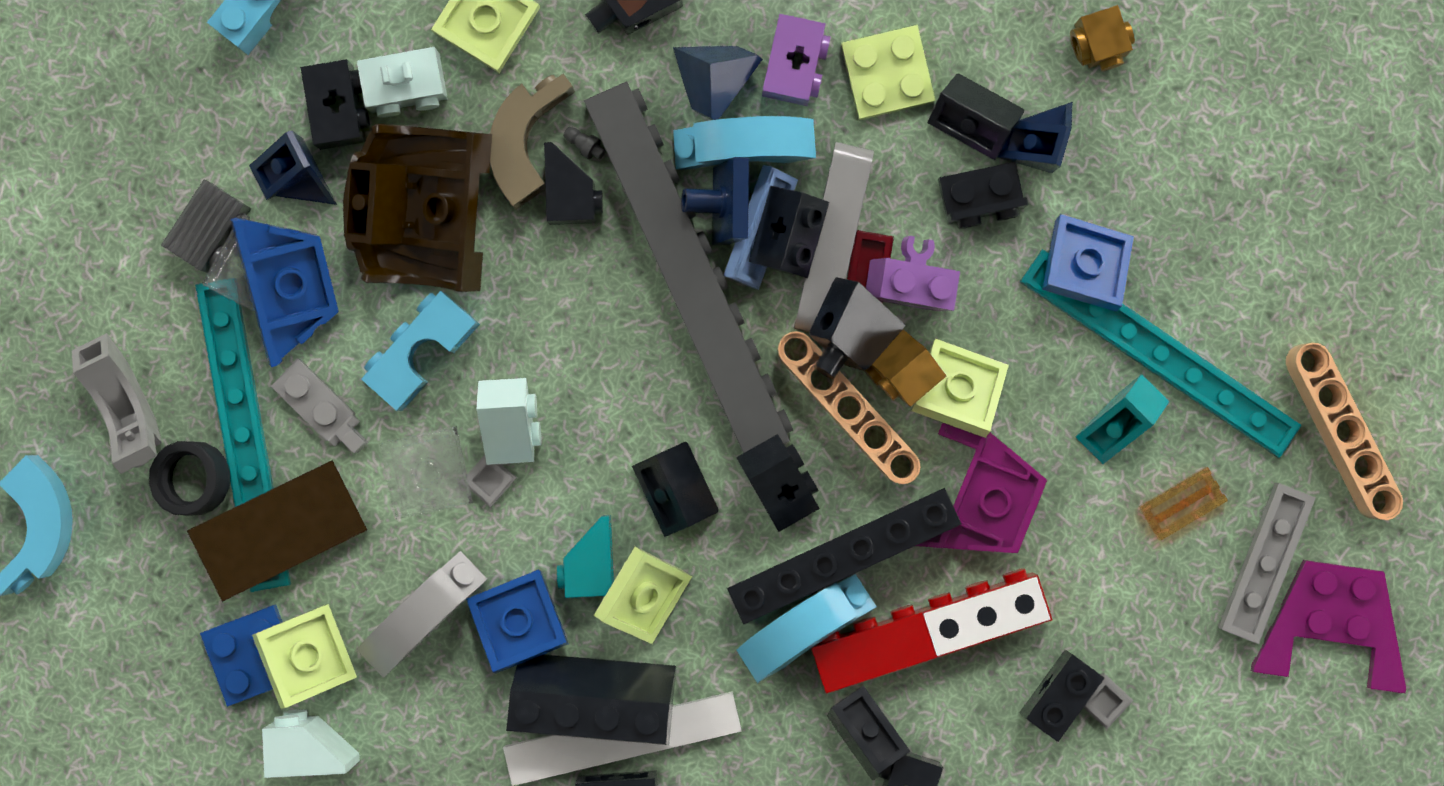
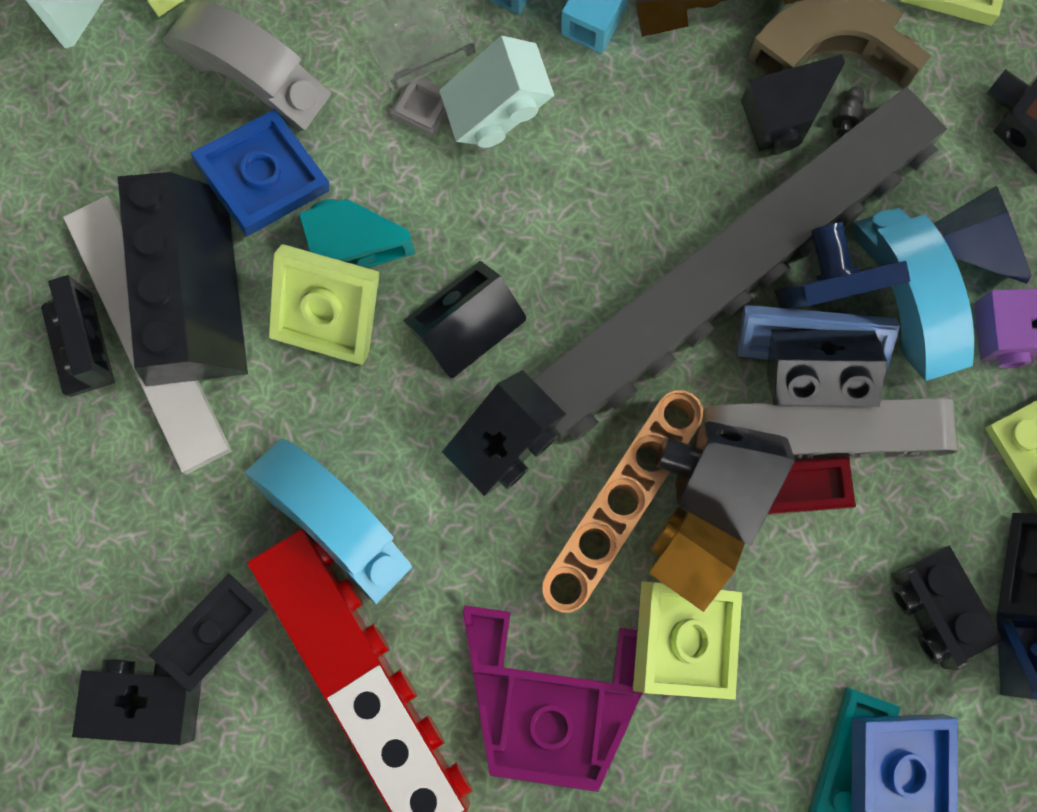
camera: 80 degrees right, 10 degrees down
(844, 556) = (433, 545): black brick -> none
(913, 281) = (810, 543): medium lavender brick -> none

